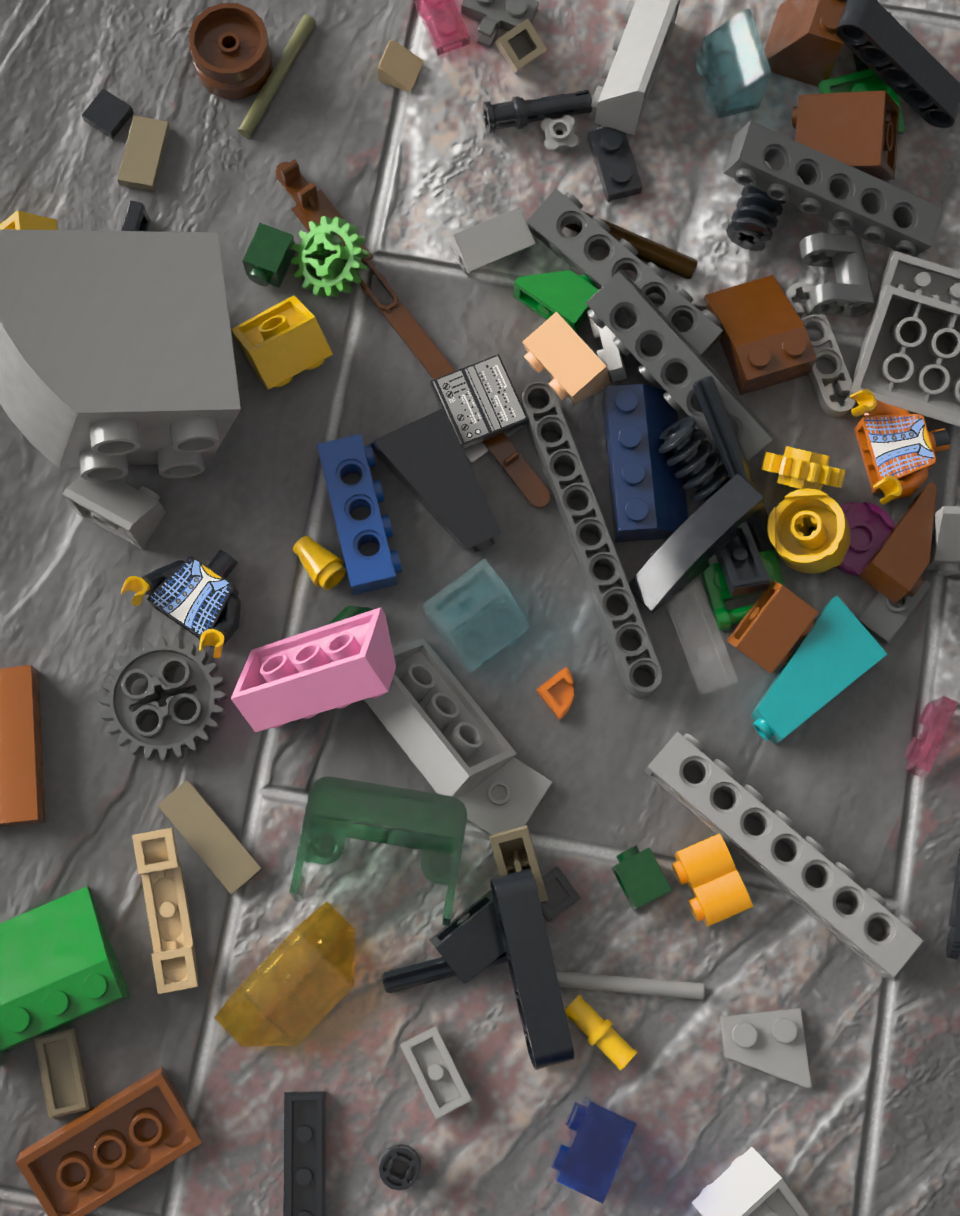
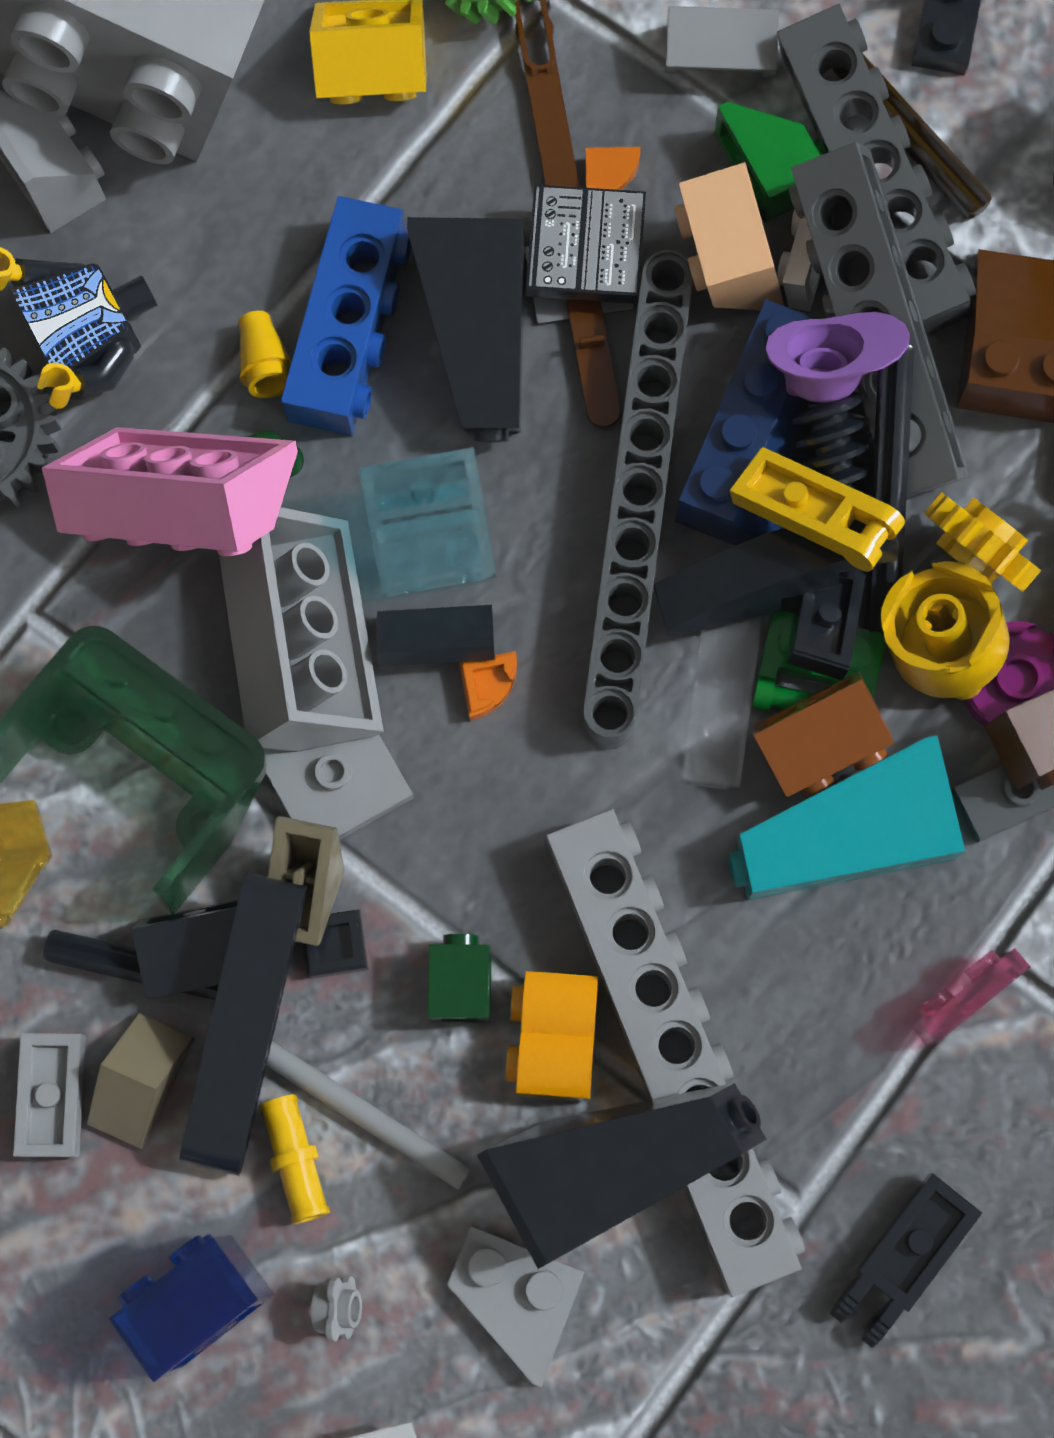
camera: 35 degrees right, 0 degrees up
(465, 348) = (611, 166): none -> orange tile
(482, 1035) = (137, 1080): none -> dark tan slope
(514, 680) = (435, 635): none -> black tile
(667, 401) = (834, 355): none -> medium lavender piece
(671, 1105) = (336, 1308): none -> light grey plate
(705, 497) = (816, 507): none -> yellow plate
(788, 939) = (606, 1165): none -> black slope

